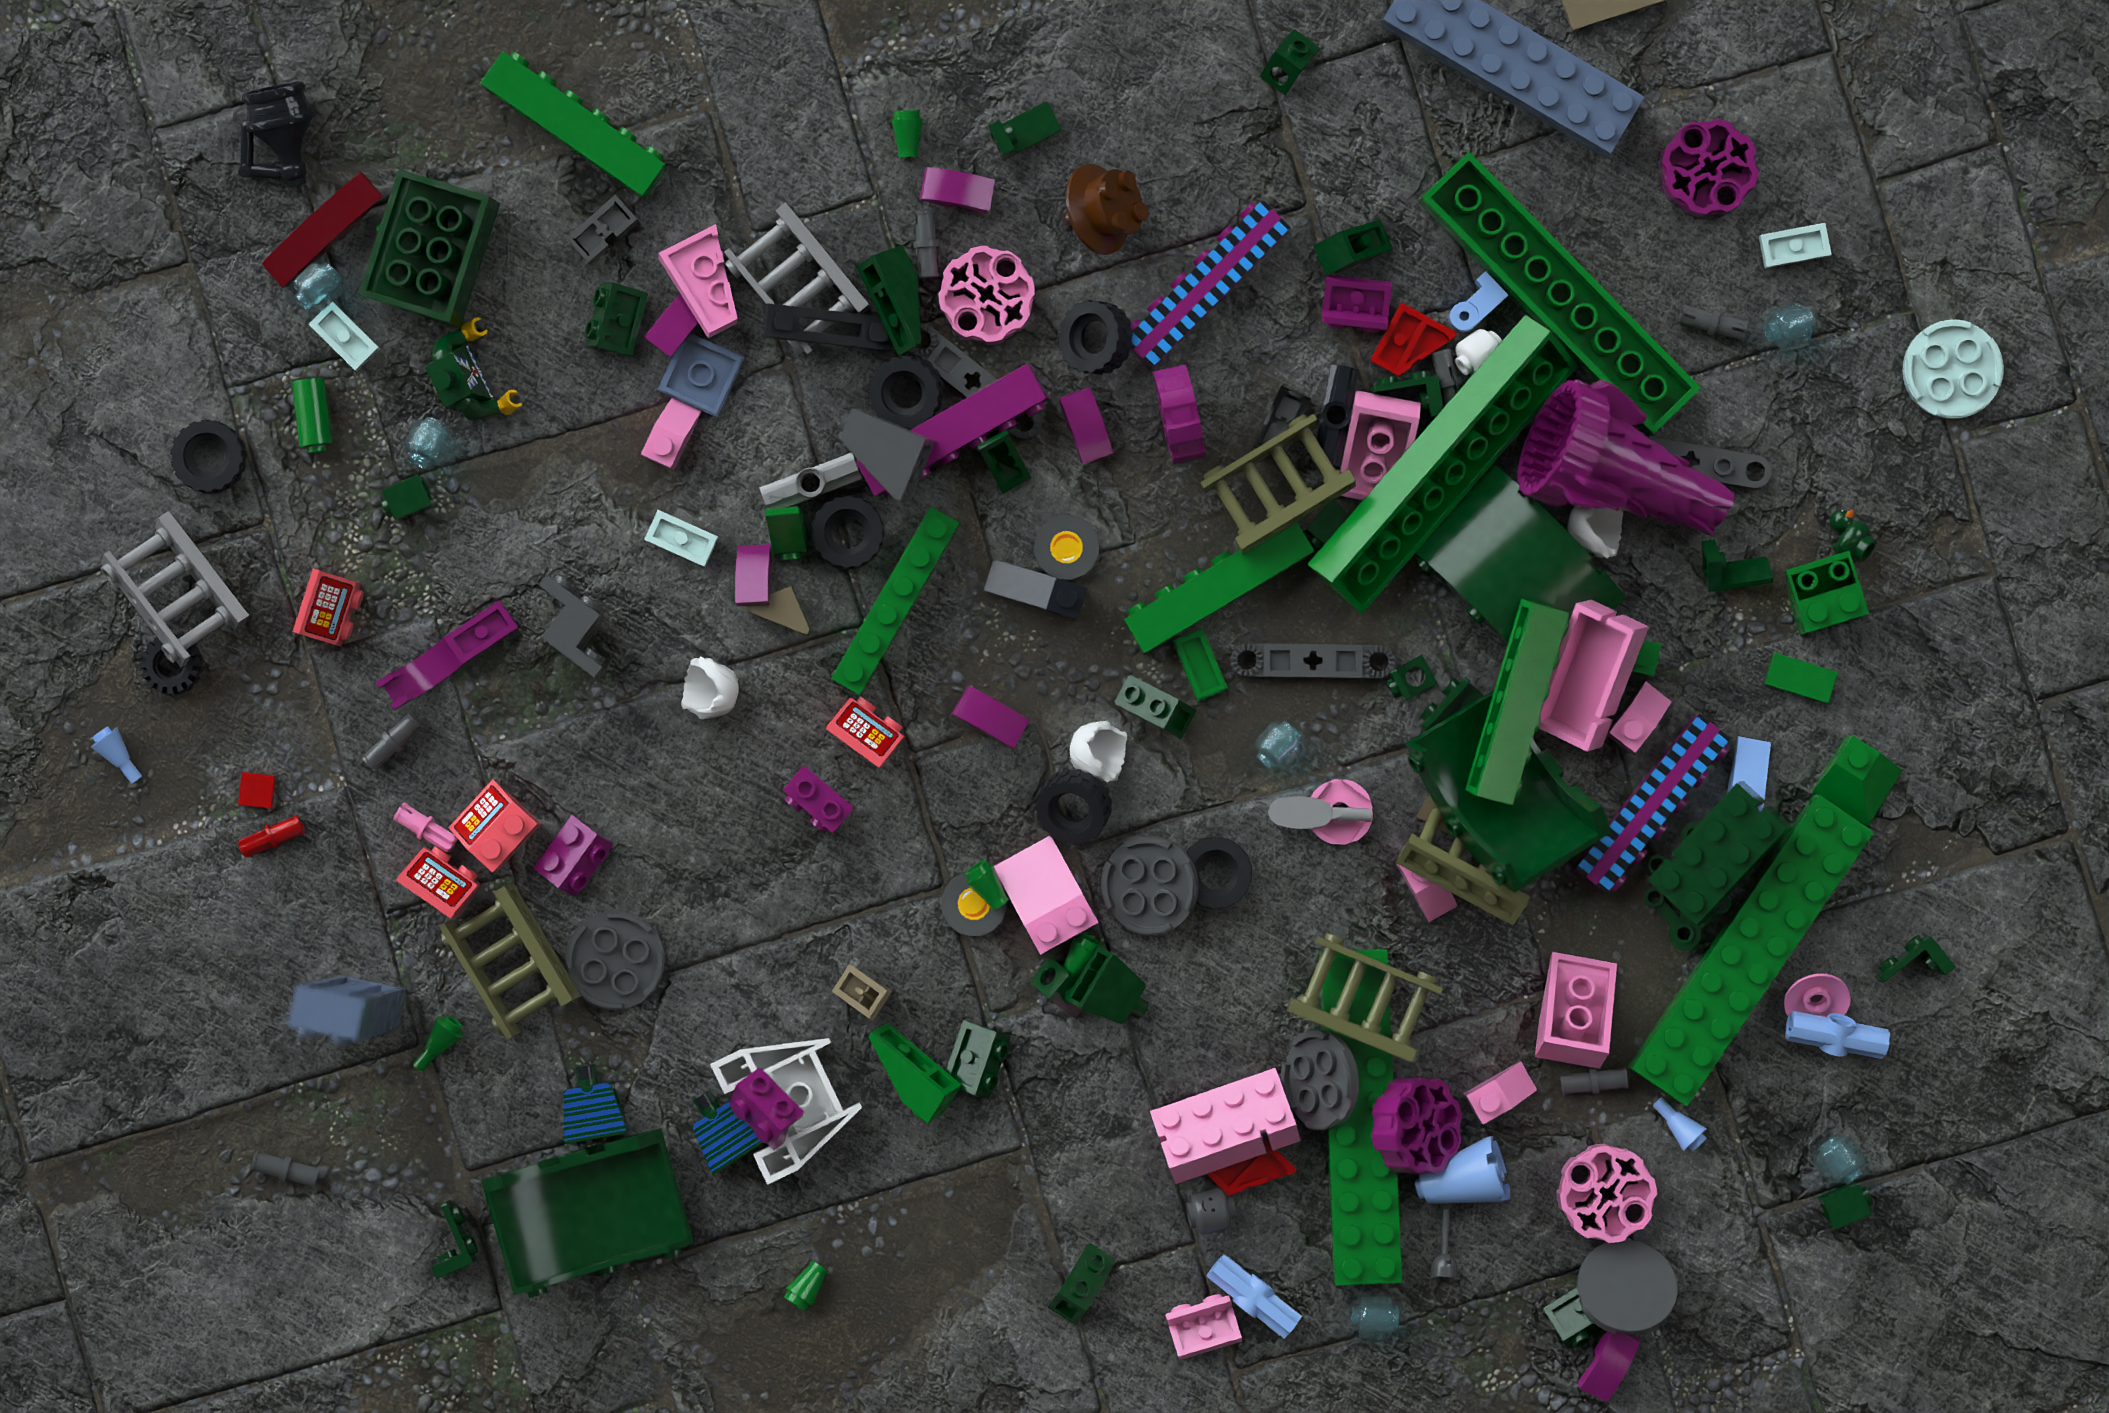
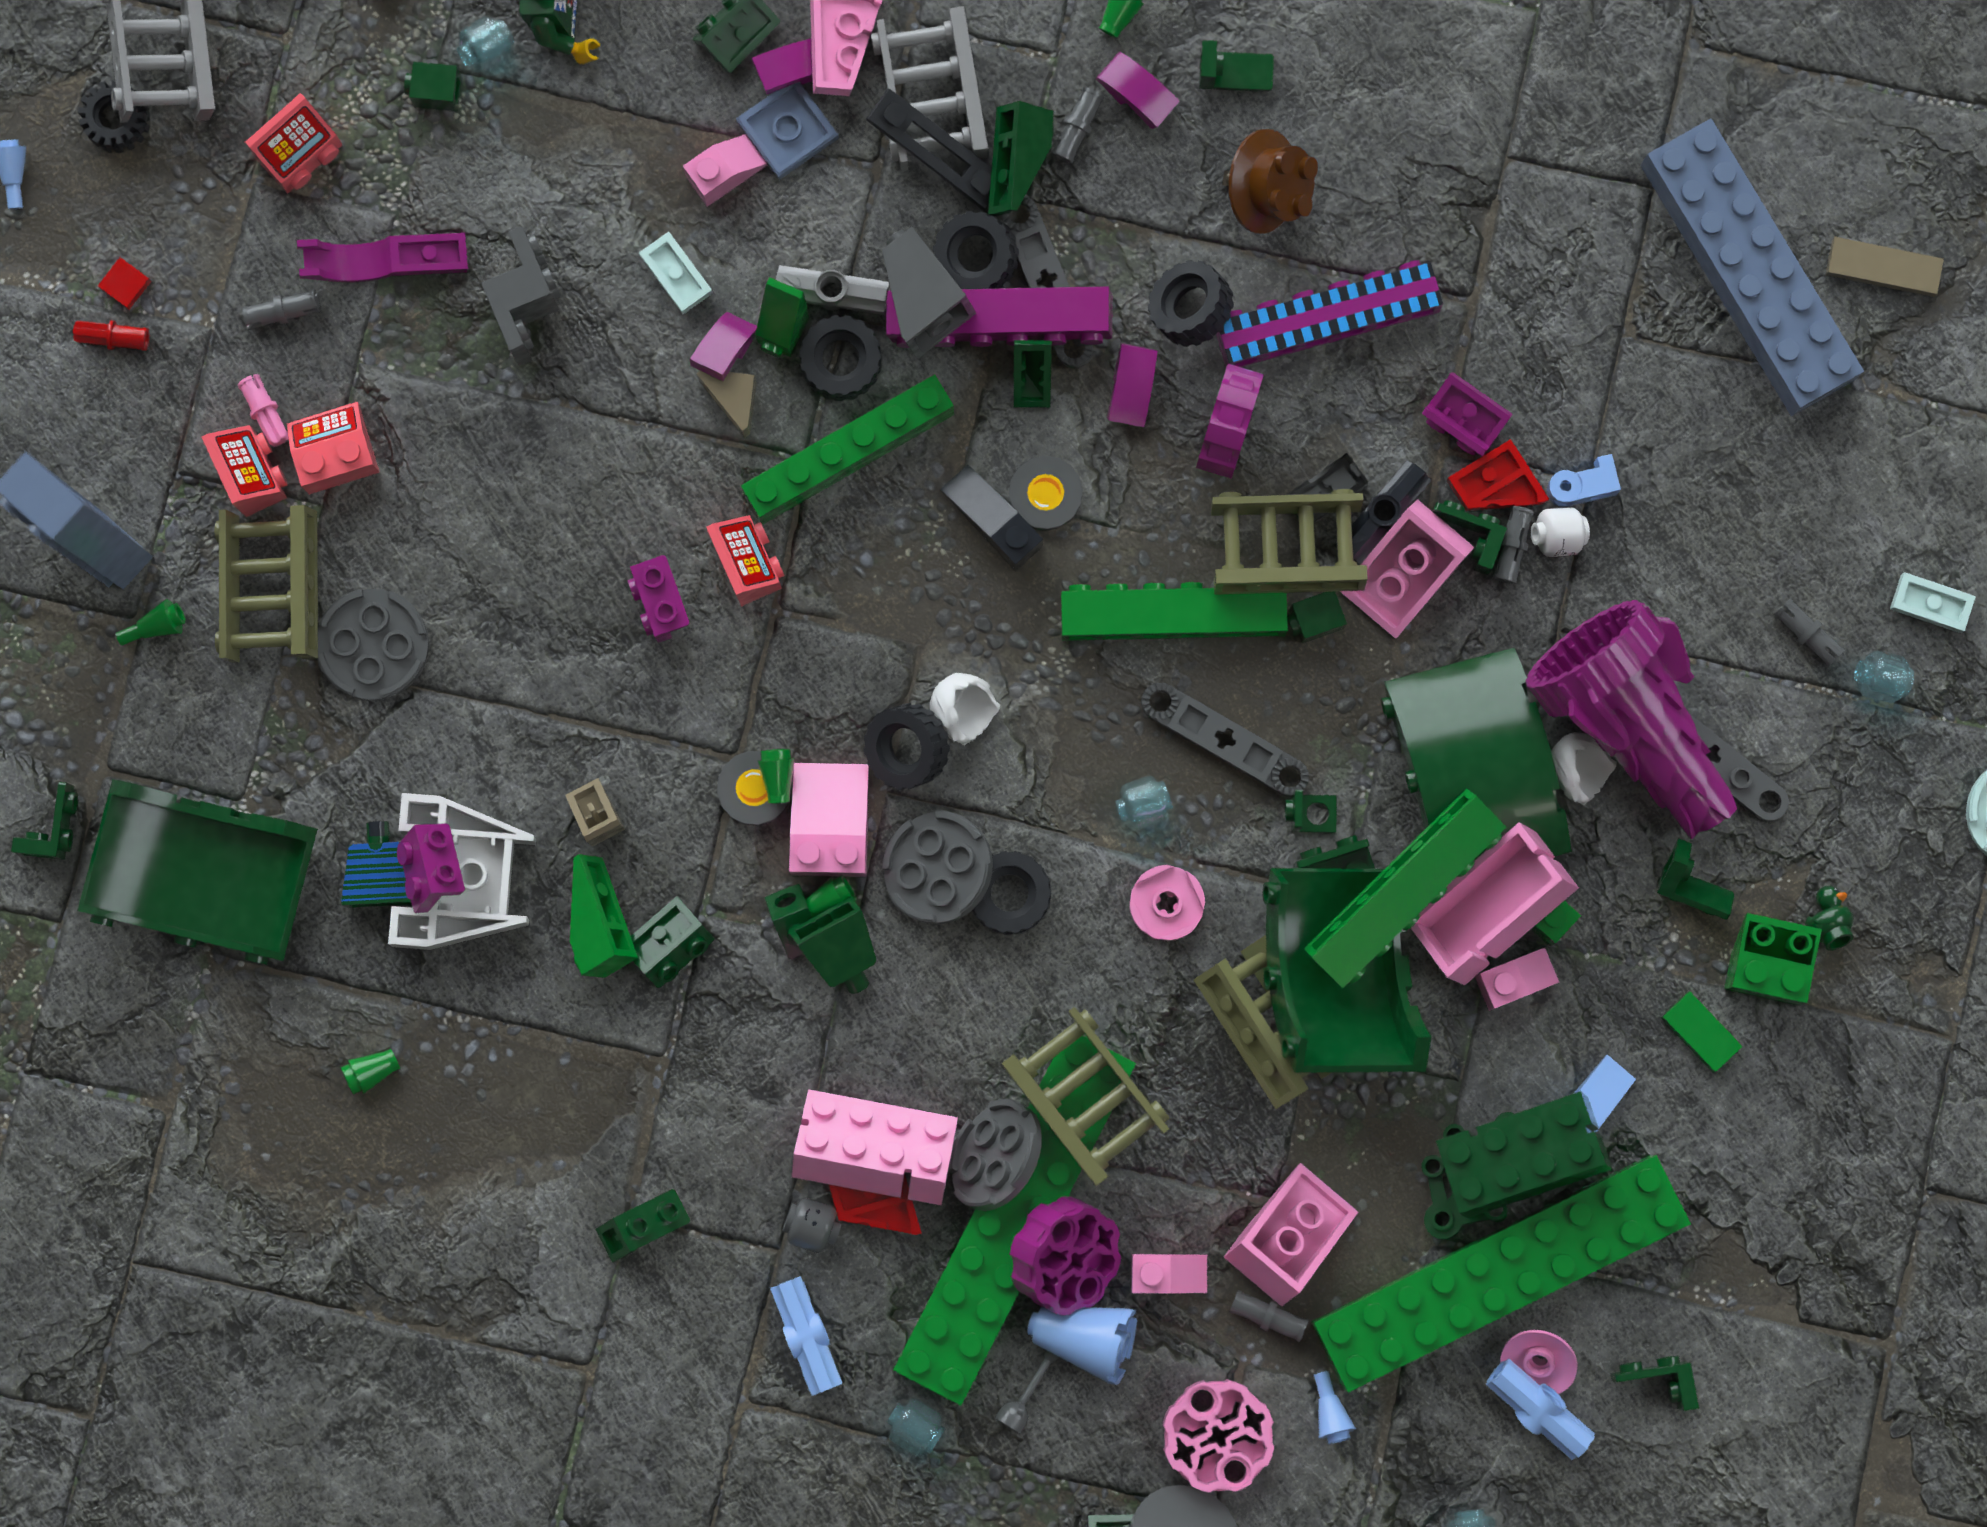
camera: 25 degrees right, 5 degrees down
(573, 856) = (390, 520): magenta bracket -> none
(592, 1108) = (263, 774): torso -> none
(709, 689) = (617, 431): white hair -> none
(956, 306) = (1072, 199): bright pink connector -> none
(990, 717) = (876, 614): magenta slope -> none
(1155, 706) = (1044, 696): dark green bracket -> none
(1200, 664) = (1111, 681): green tile -> none
(1203, 1326) = (738, 1337): bright pink bracket -> none
(1292, 57) = (1537, 143): dark green bracket -> none
(1310, 812) = (1138, 886): light grey piece -> none
(1352, 247) = (1493, 359): dark green slope -> none
(1431, 898) = (1210, 1038): bright pink slope -> none
(1443, 464) = (1462, 616): green brick -> none
(1557, 290) = (1671, 512): green brick -> none
(1652, 802) = (1483, 1070): brick -> none
(1681, 155) = (1864, 452): magenta connector -> none
(1857, 779) = (1704, 1164): green slope -> none

